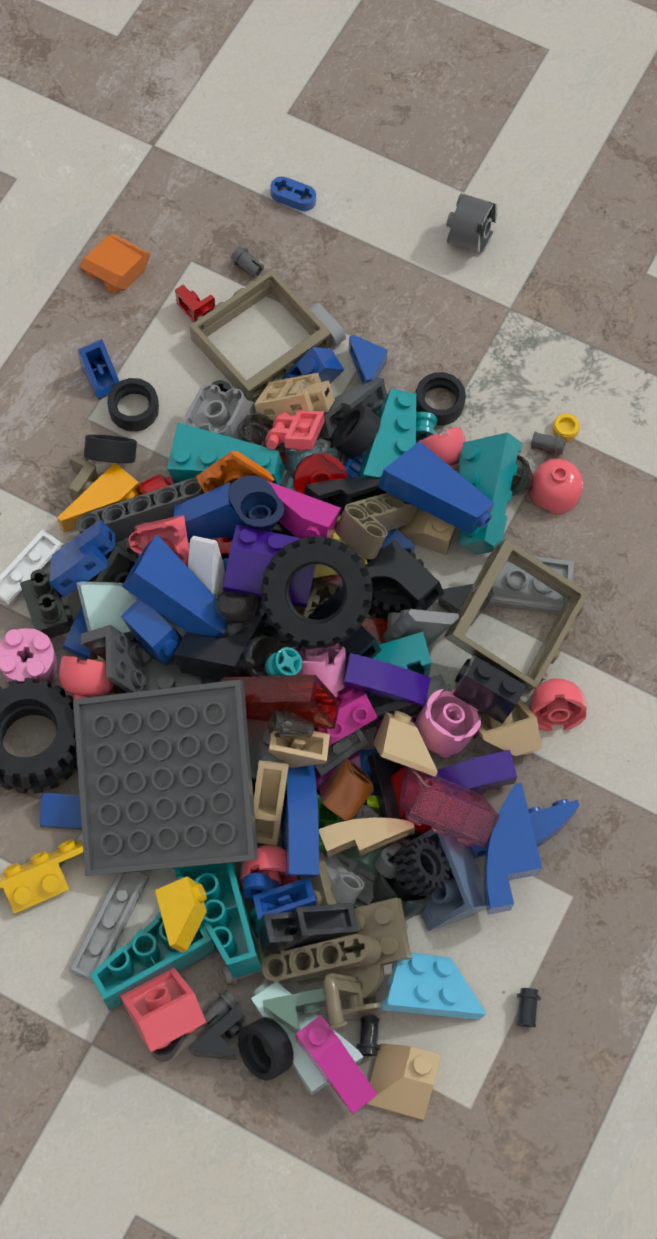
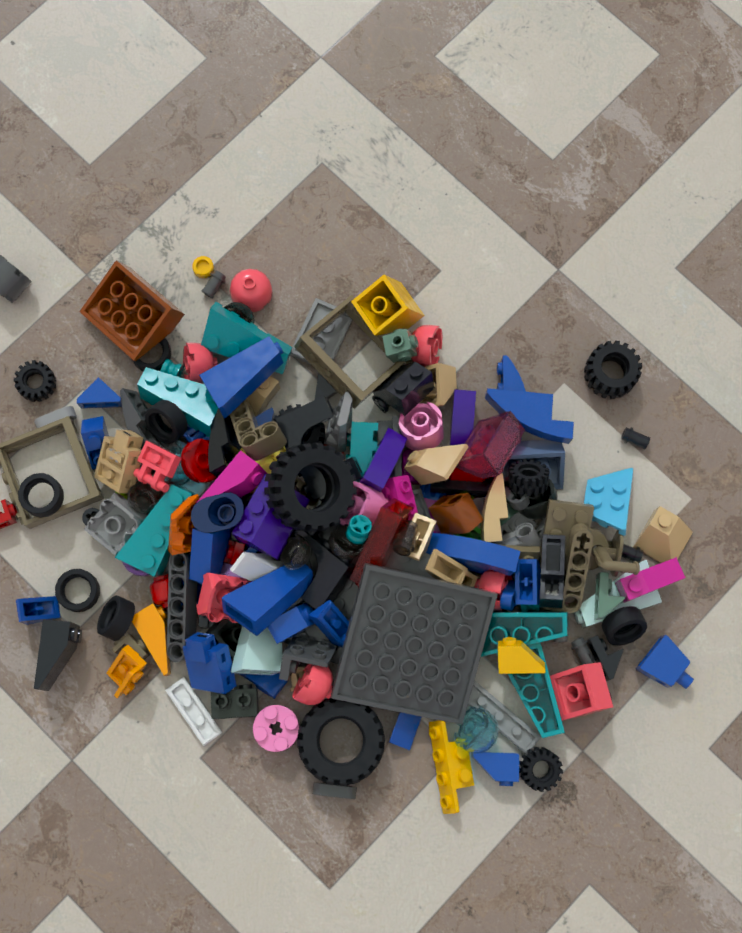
camera: 75 degrees left, 10 degrees up
(35, 989) = (553, 772): none -> black tyre
(44, 937) = (499, 766): none -> blue slope
(53, 397) = (56, 648): none -> black slope
(53, 478) = (126, 670): none -> light orange bracket
(80, 896) = (478, 731): none -> clear light blue cylinder
(168, 670) = (330, 622): none -> blue slope
(228, 311) = (29, 483): none -> black tyre
(231, 1122) = (666, 664): none -> blue torso
(363, 278) = (30, 369): none -> black tyre
(479, 360) = (130, 311): none -> dark orange slope
(541, 663) = (400, 345): none -> sand green brick
(589, 640) = (387, 306): none -> yellow slope
(623, 930) = (624, 357): none -> black tyre

